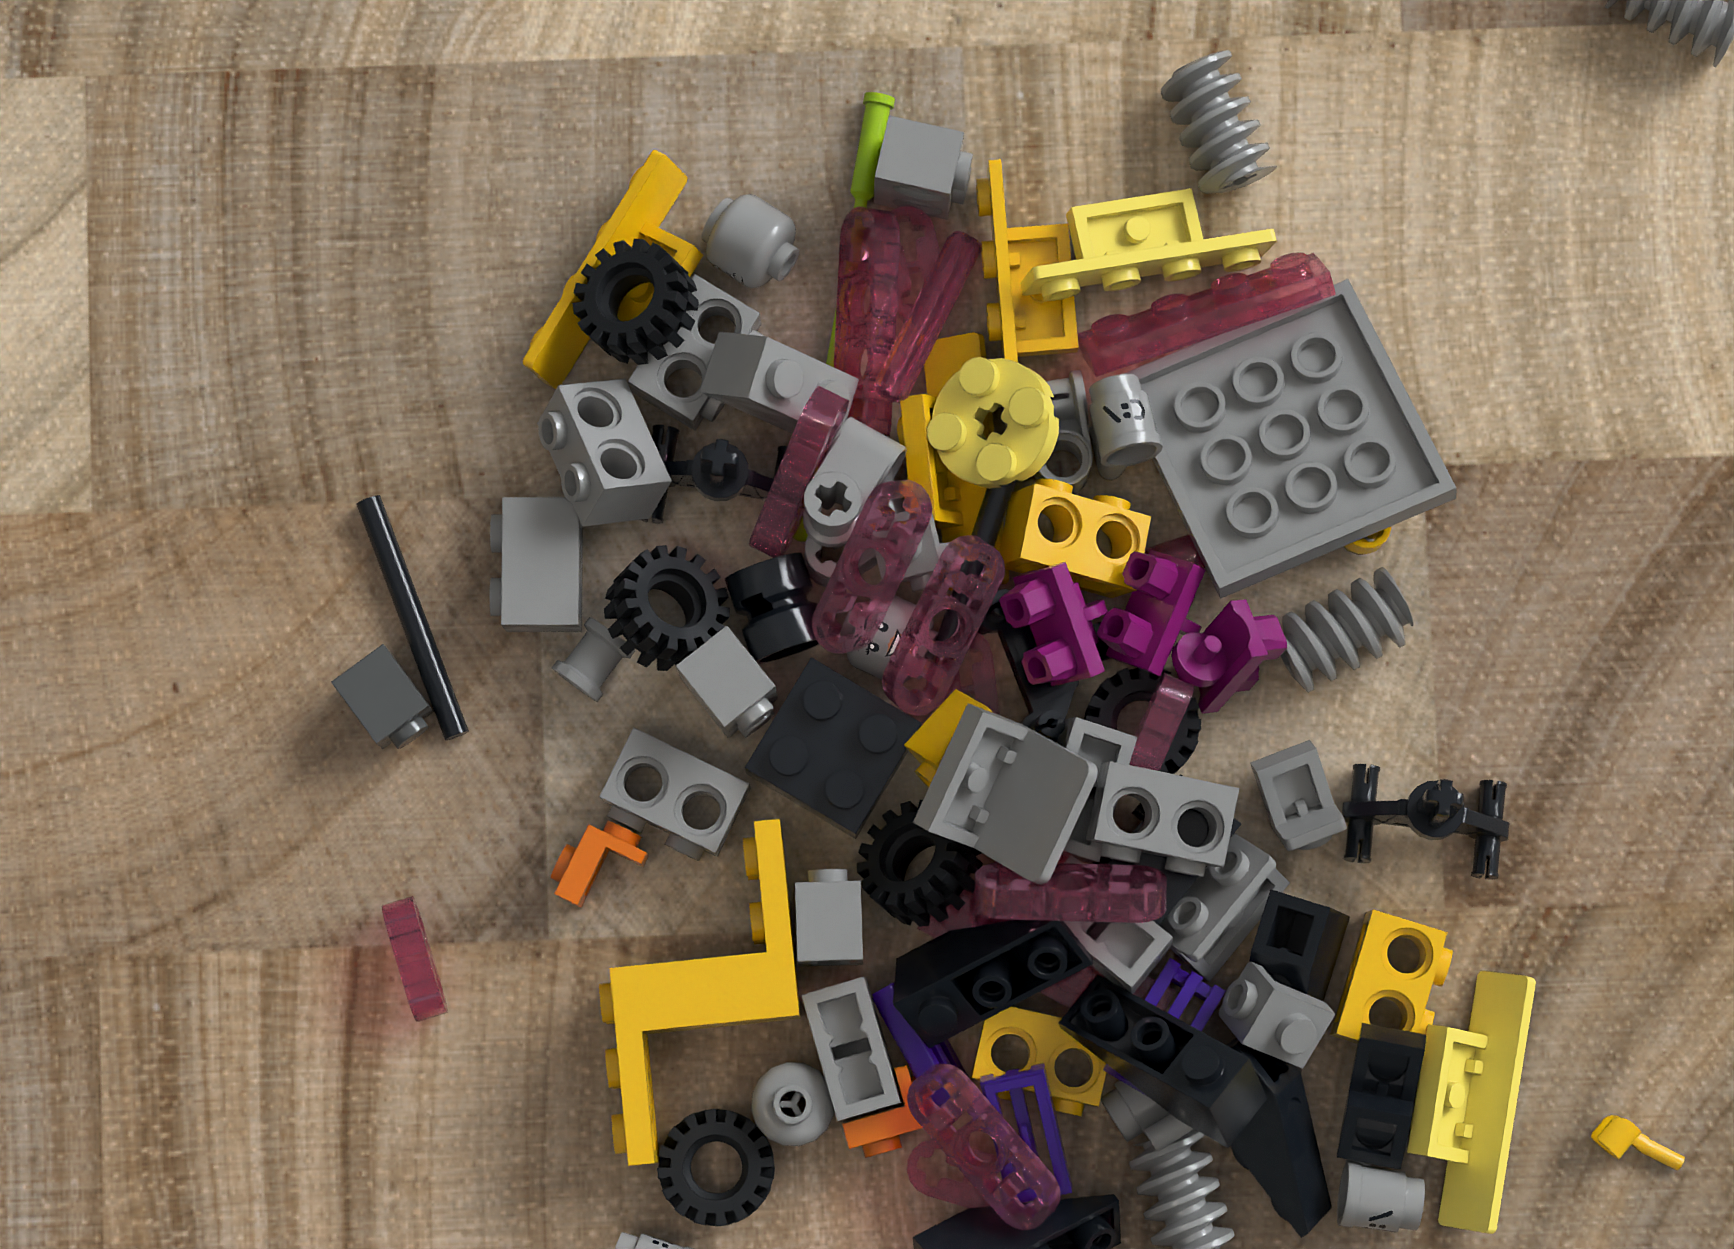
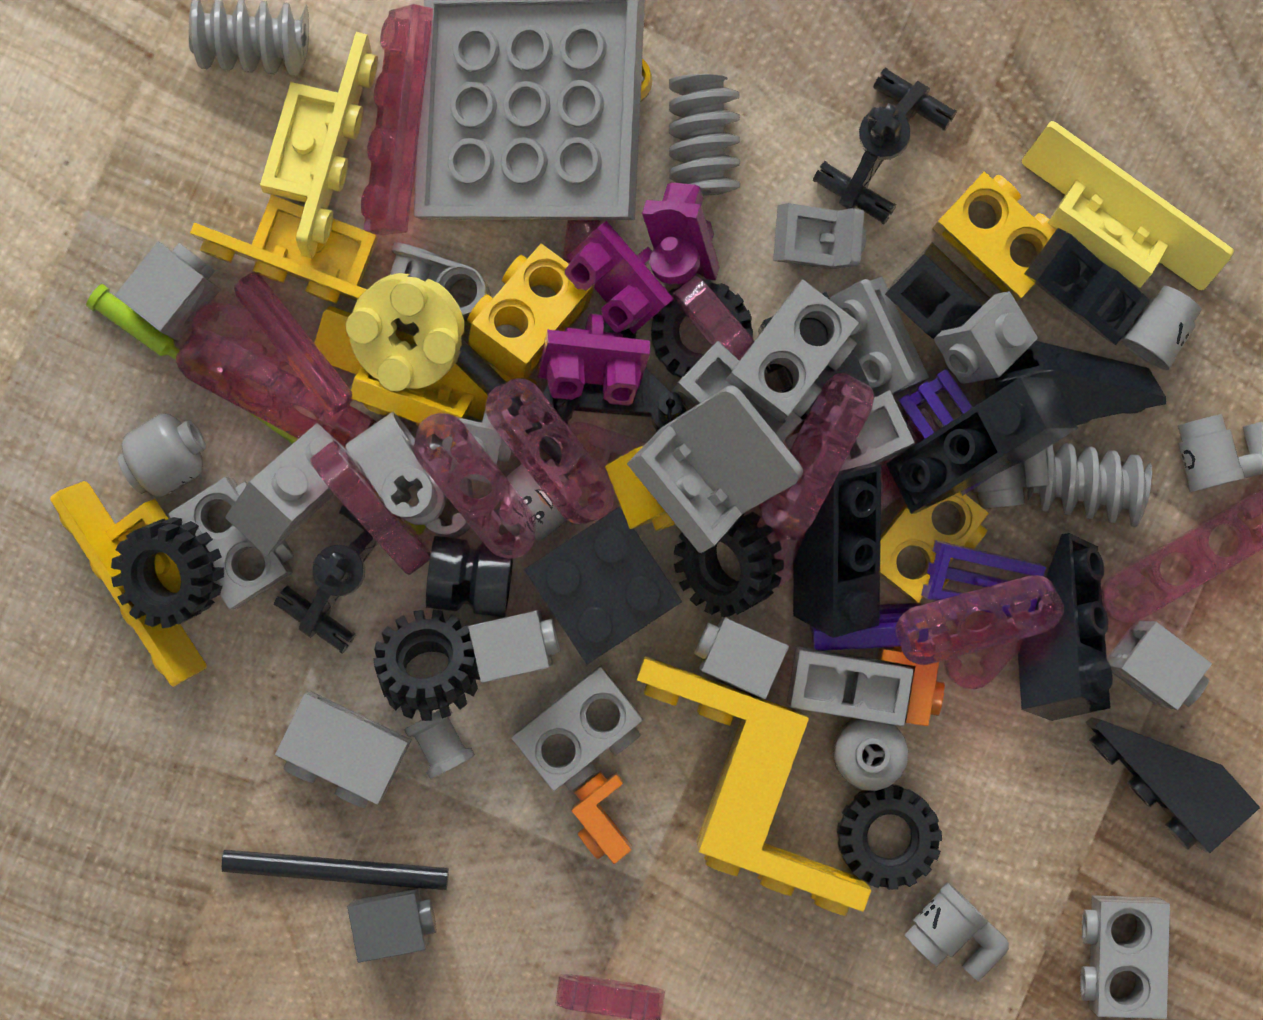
camera: 60 degrees left, 5 degrees up
(603, 452) = (277, 656): light grey brick -> none
(1122, 425) = (456, 230): light grey piece -> none
(1618, 1134) = (1201, 116): yellow hand -> none

